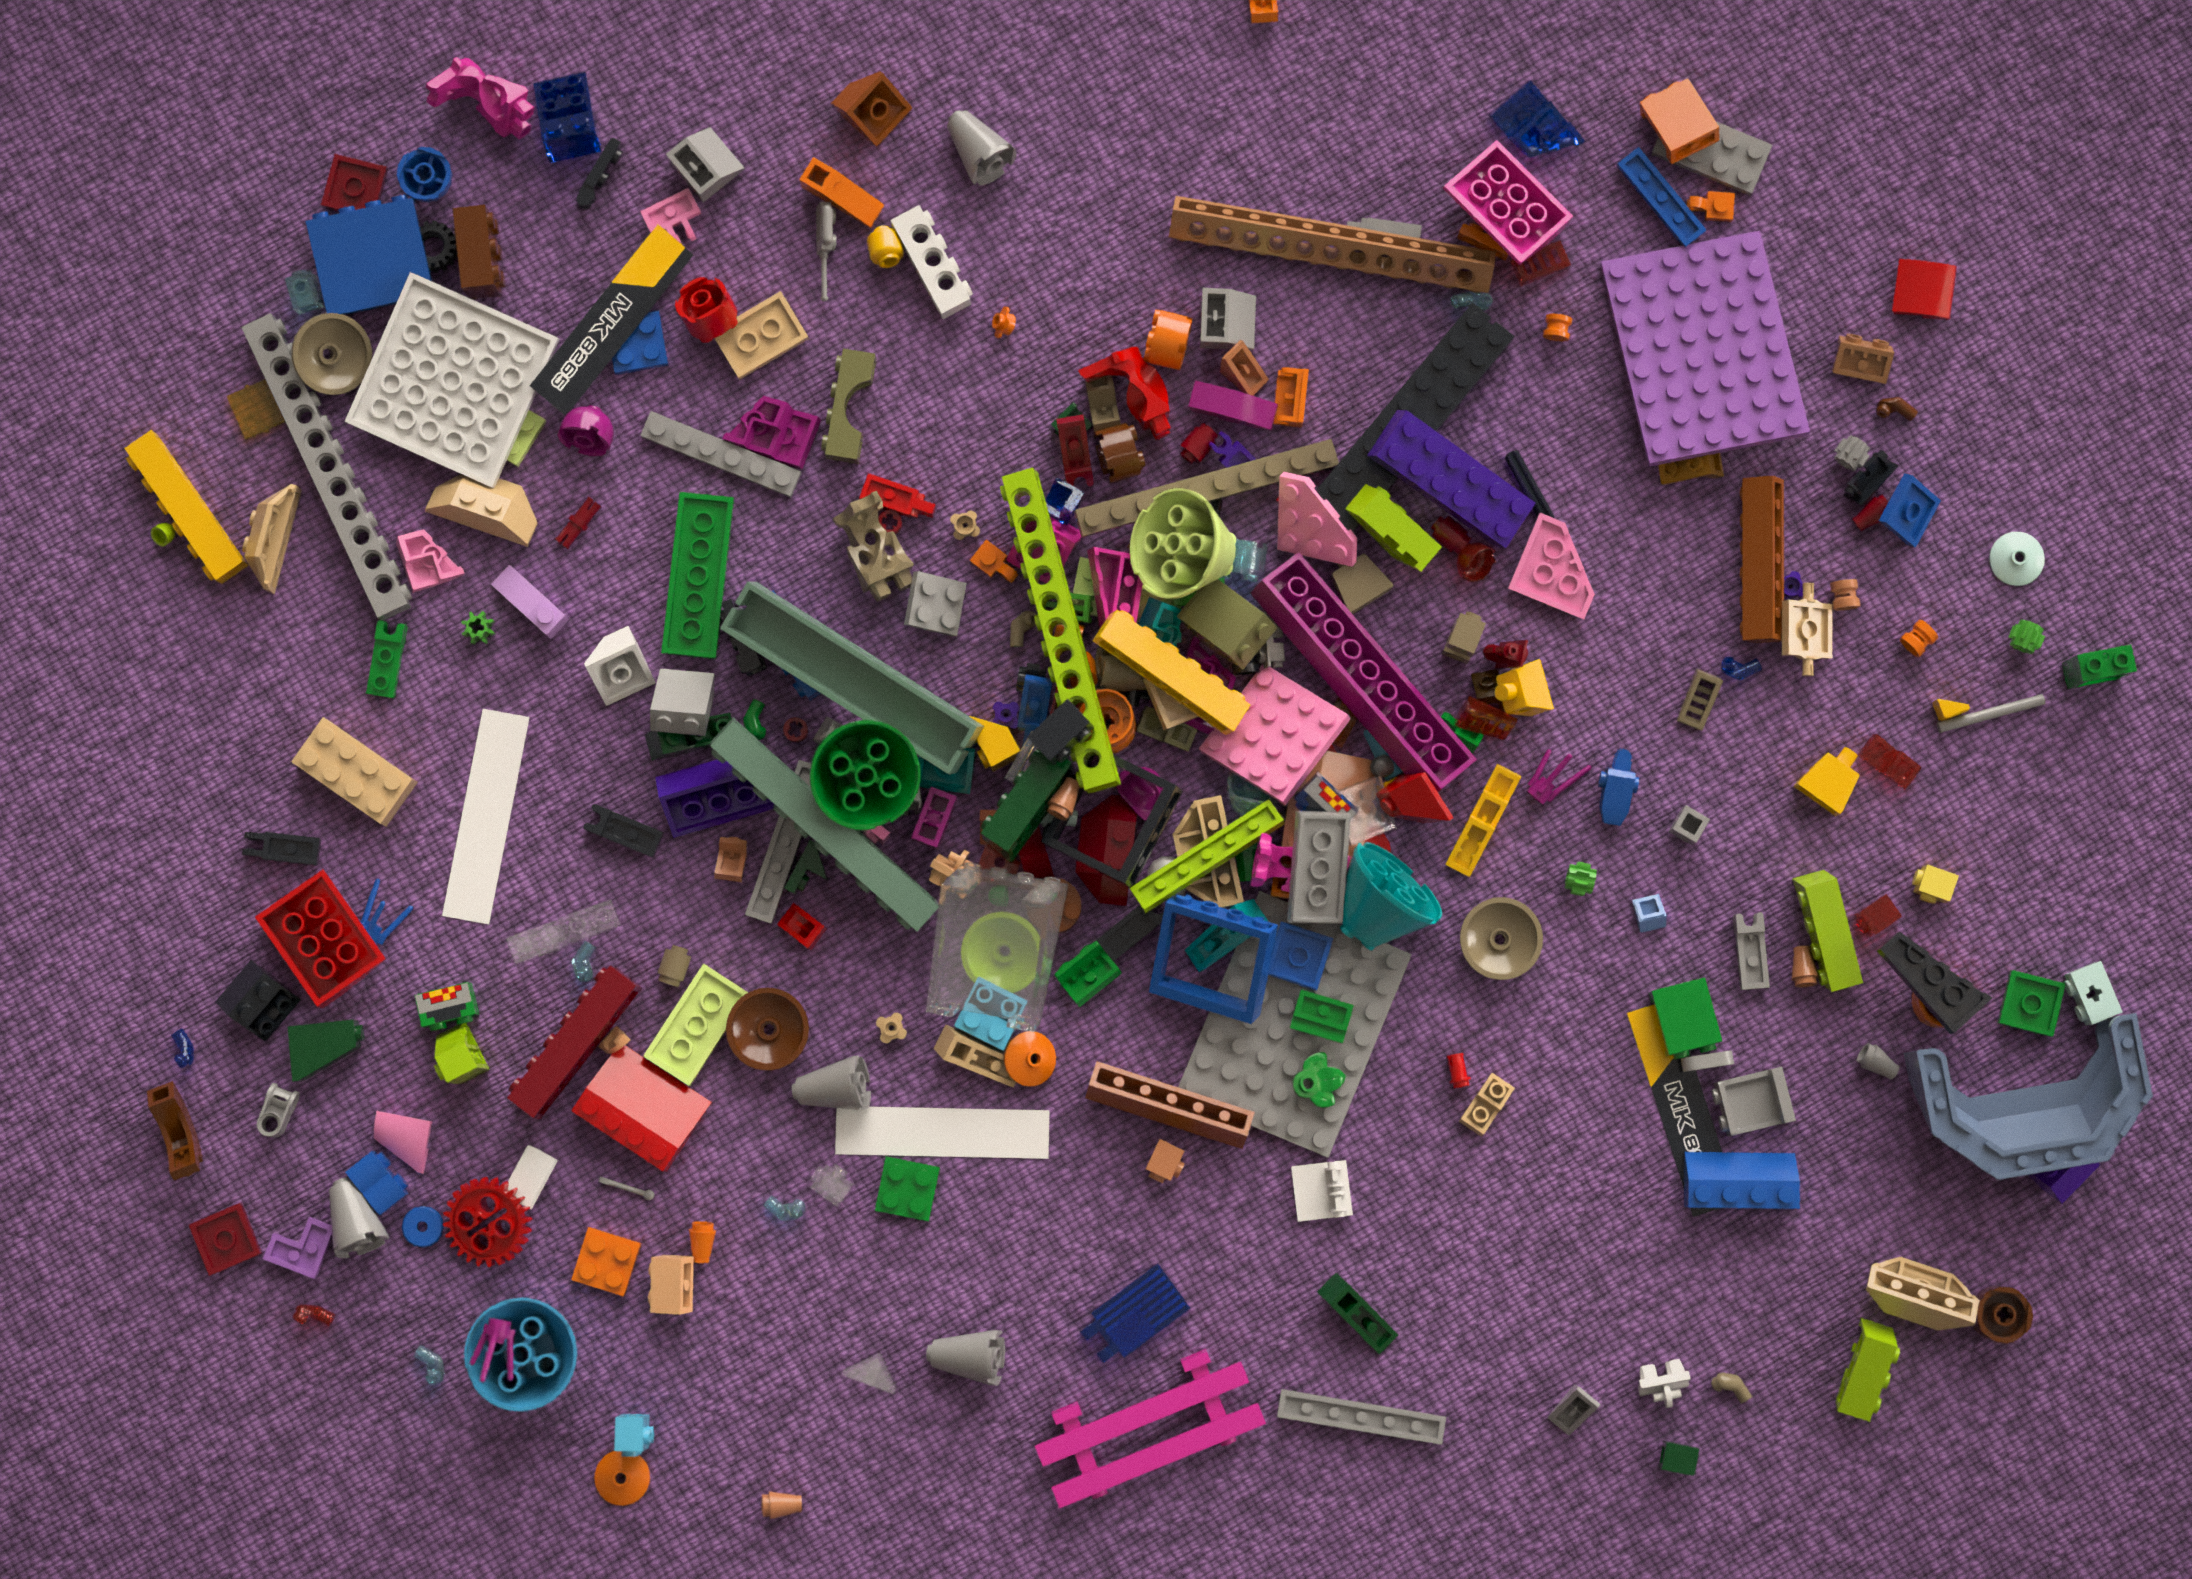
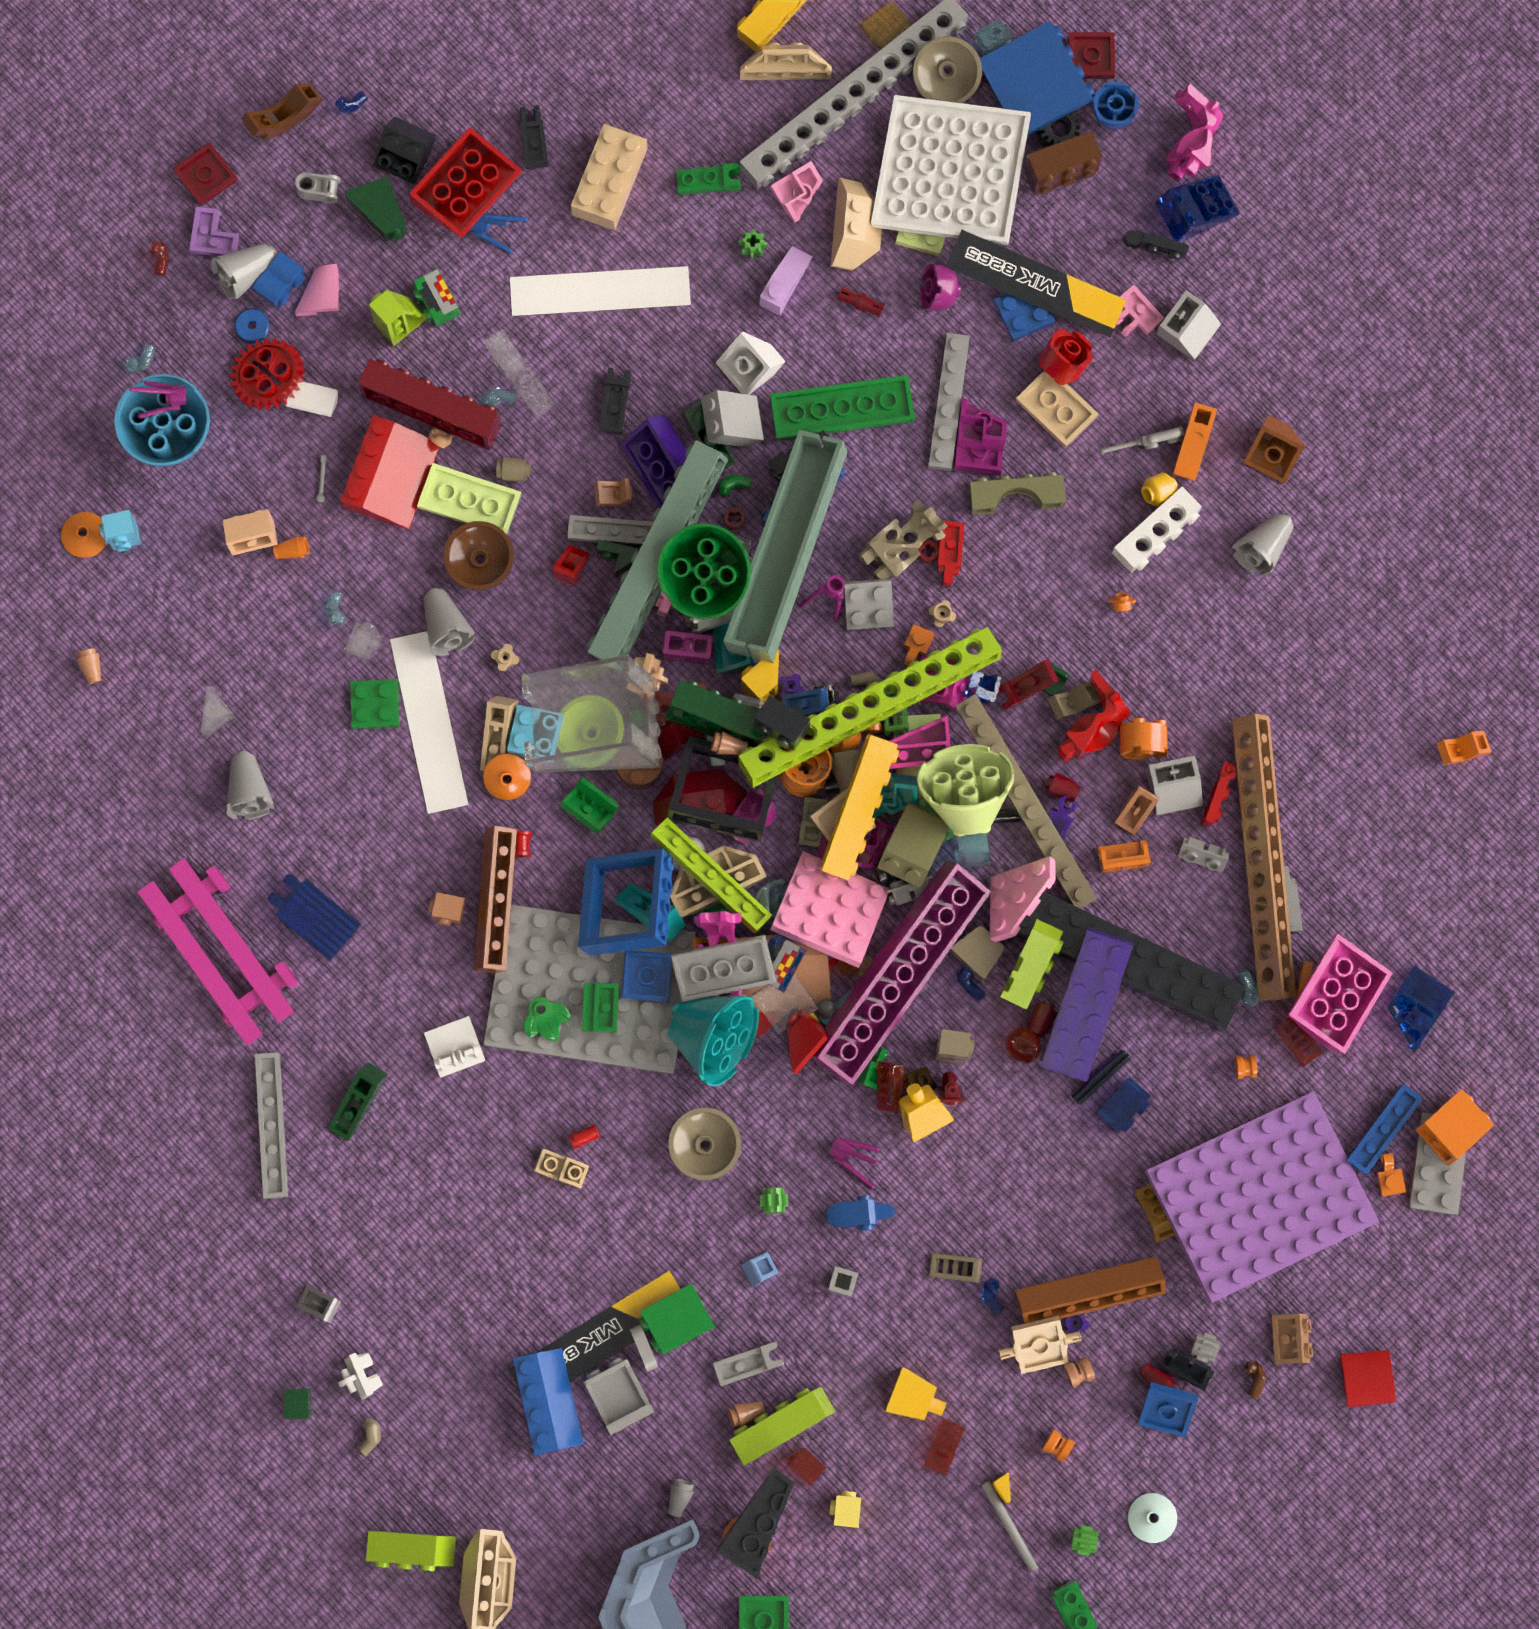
camera: 70 degrees right, 5 degrees down
(606, 1261) = (257, 477): orange plate -> none
(911, 639) = (833, 590): none -> magenta plant
(1112, 1058) = (522, 844): none -> red bush
(1118, 452) = (1036, 721): reddish brown brick -> none
(1129, 932) = (631, 830): black plate -> none
(1232, 406) = (1102, 808): magenta slope -> none
(1247, 275) = (1218, 793): none -> red hinge
(1304, 320) = (1214, 858): none -> light grey hinge
(1395, 603) = (970, 987): none -> clear blue arm
(1483, 820) = (803, 1106): yellow slope -> none
(1552, 569) = (1034, 1113): bright pink plate -> none
(1568, 470) = (1124, 1105): none -> clear blue brick

